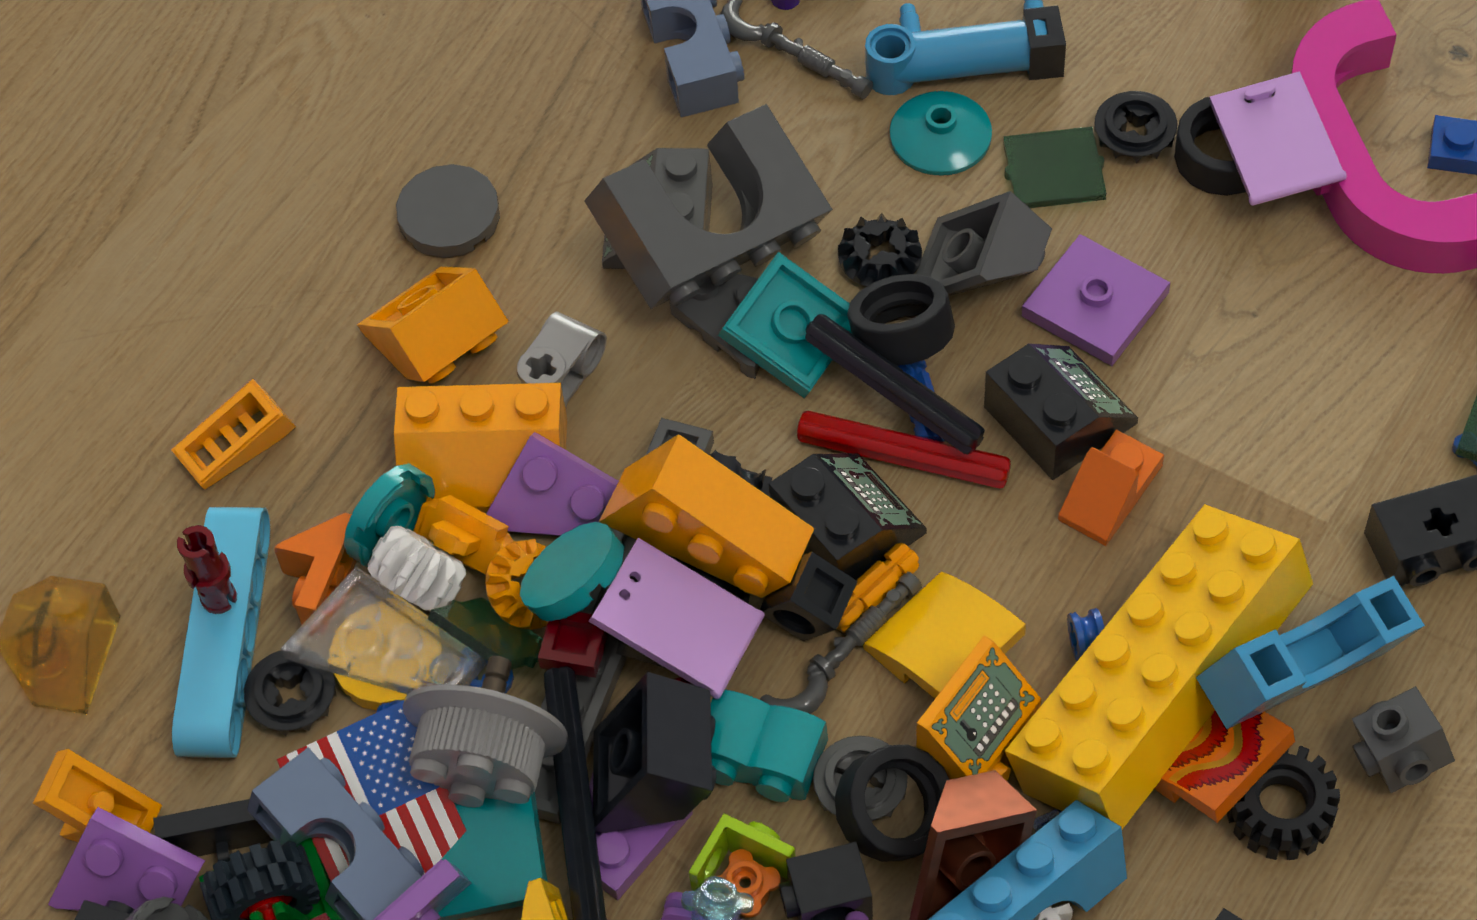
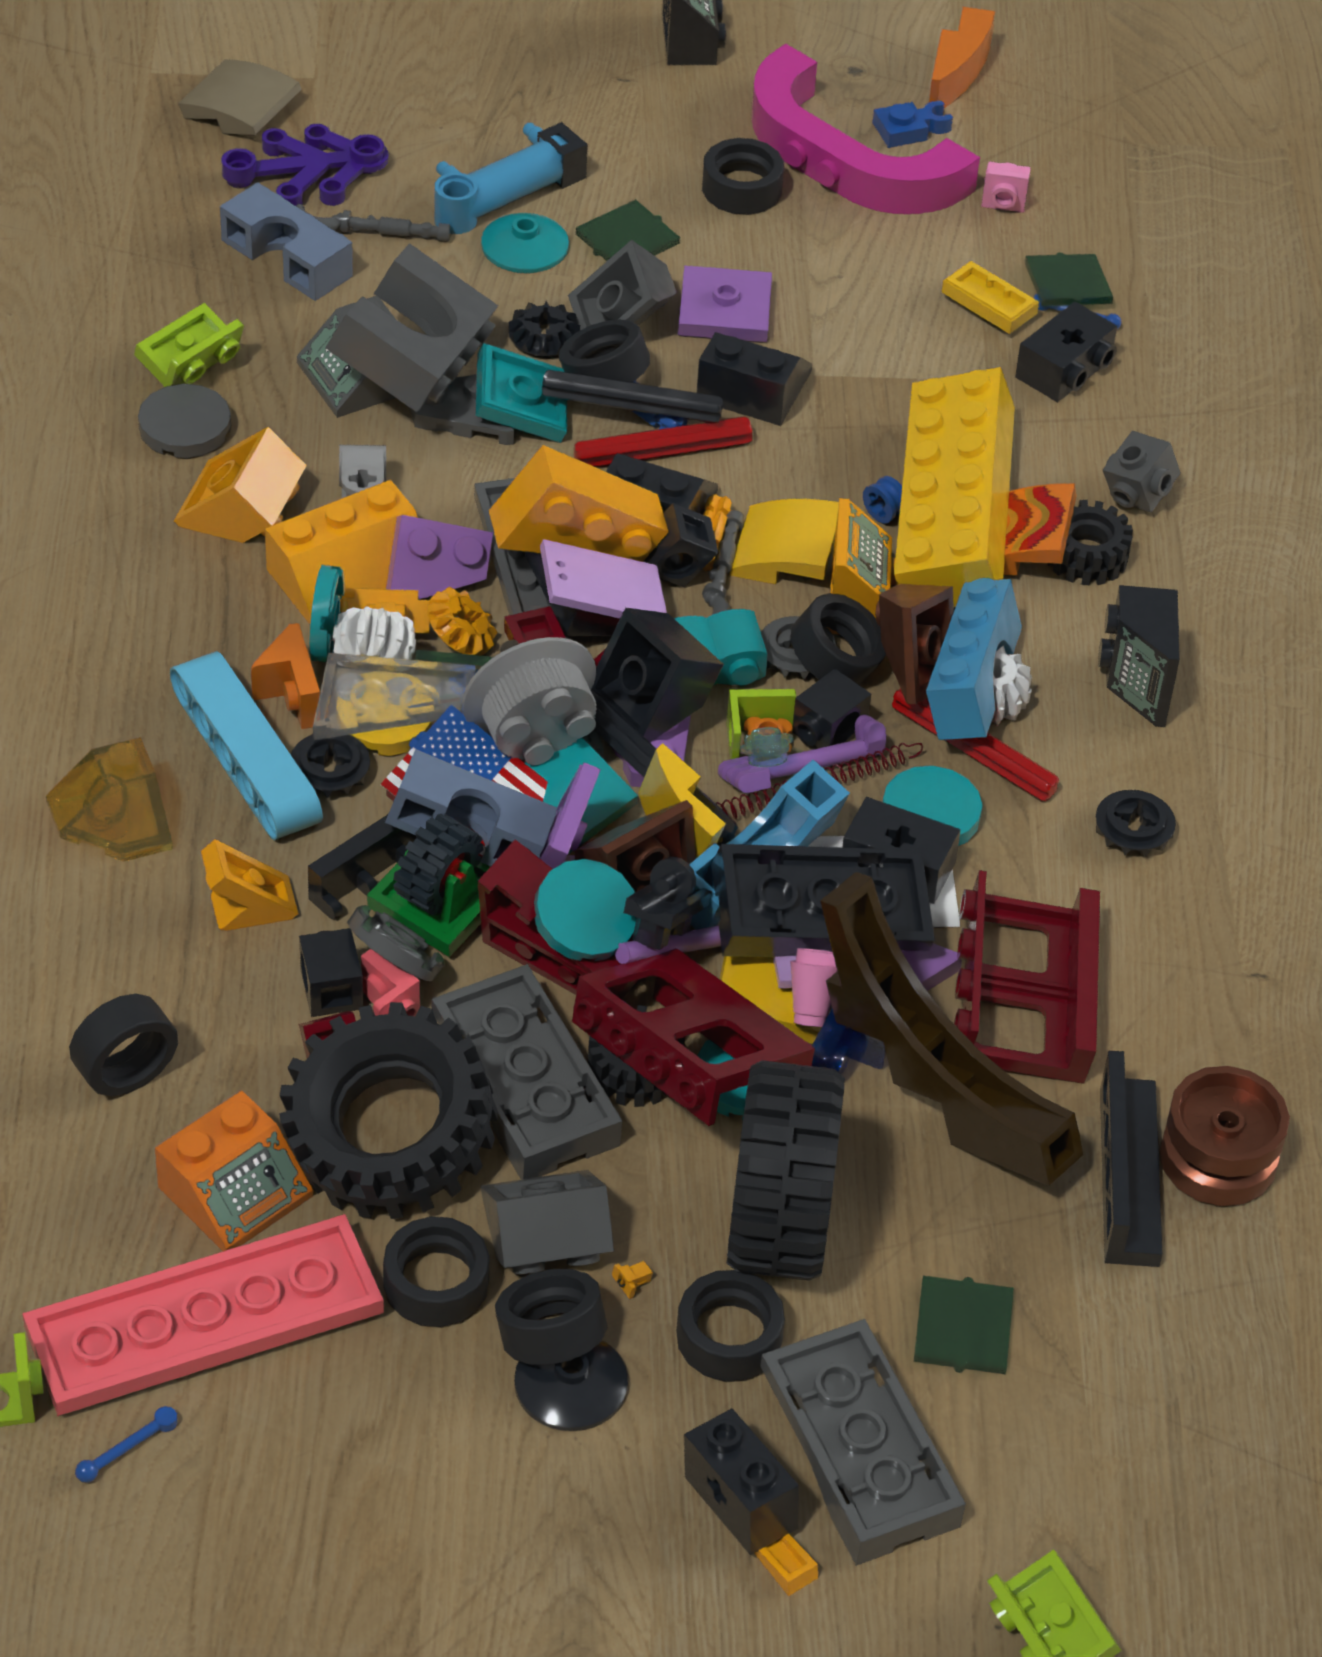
camera: 40 degrees left, 10 degrees down
(123, 866) = (302, 905): medium lavender wing -> none
(207, 569) = (232, 661): dark red pin -> none
(256, 440) = (138, 592): light orange slope -> none
(505, 127) = (189, 346): none -> lime bracket
(570, 569) = (505, 583): teal tile -> none
(1109, 486) = (827, 411): orange slope -> none
(1140, 109) = (655, 180): black gear -> none
(1276, 139) = (785, 151): lavender container -> none
(1288, 664) = (1052, 437): dark azure arch -> none
(1399, 418) = (990, 297): none -> yellow plate

